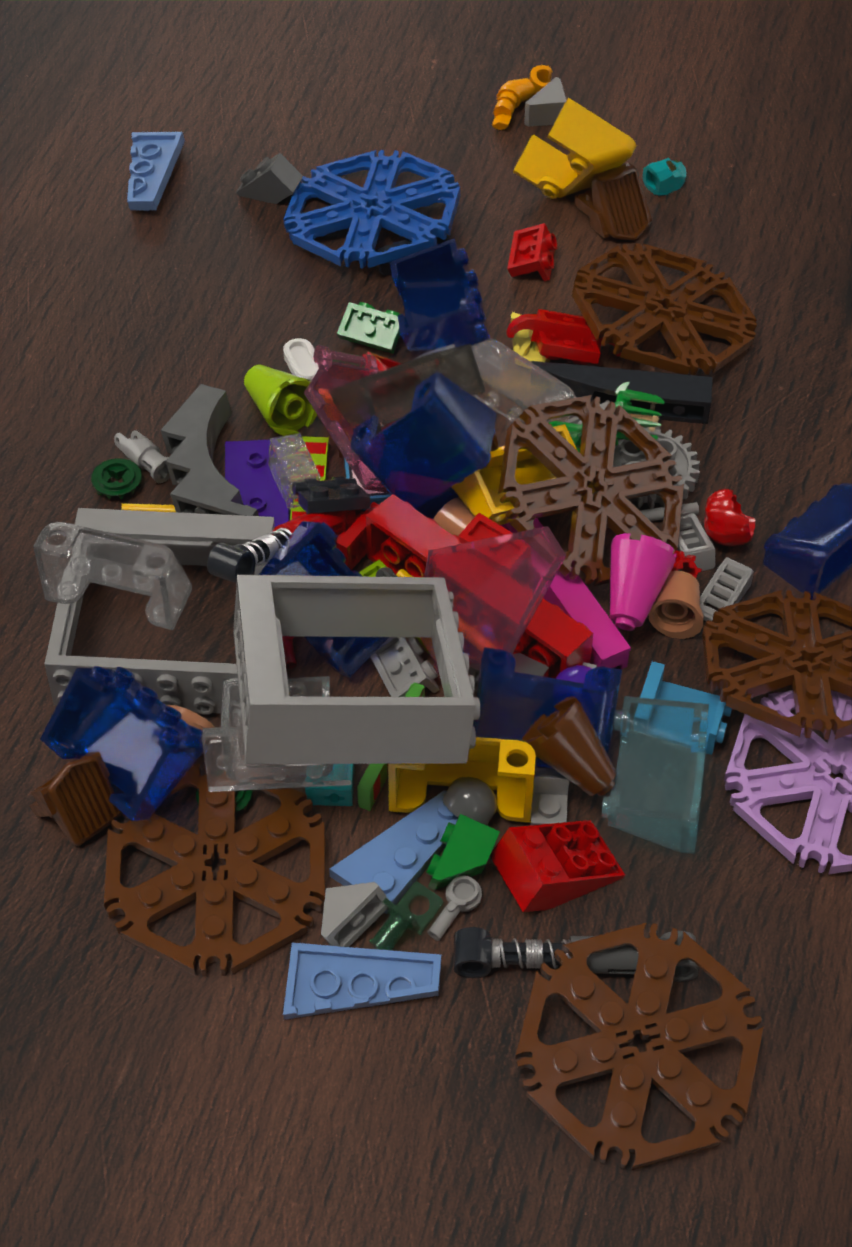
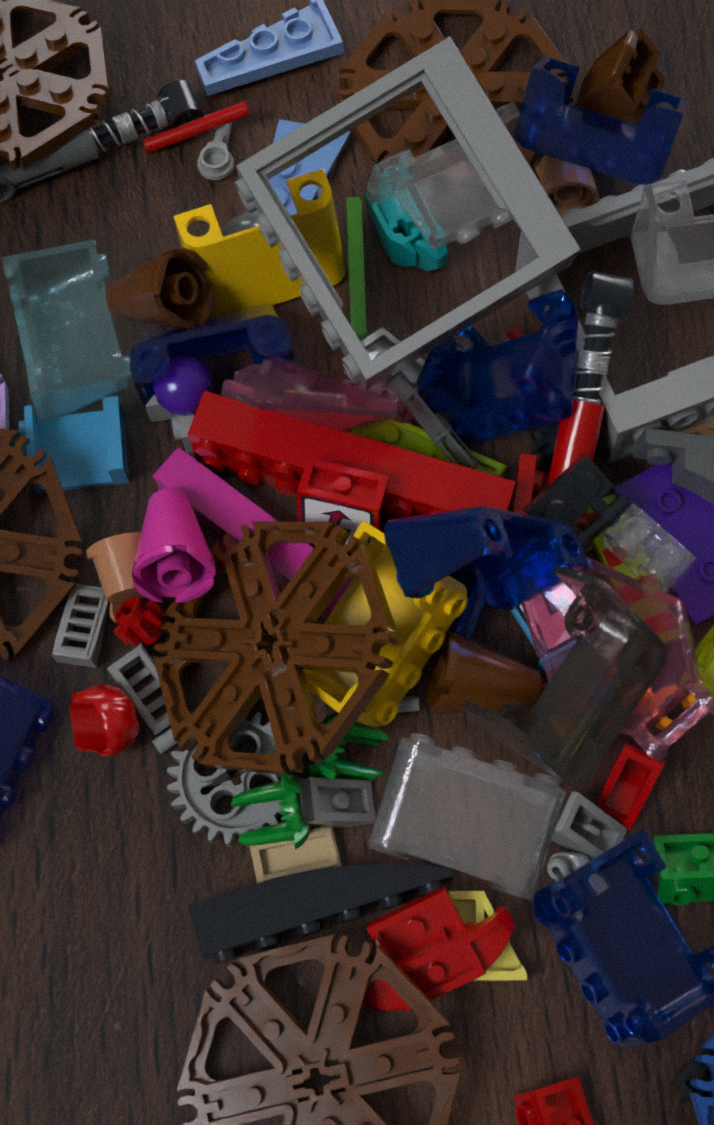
camera: 160 degrees right, 20 degrees up
(350, 912) = (309, 91): light grey slope -> none
(402, 919) = (262, 106): clear green bracket -> none
(457, 922) = (197, 127): none -> red bar
(465, 852) = (219, 186): green slope -> none
(554, 863) = (138, 217): red slope -> none

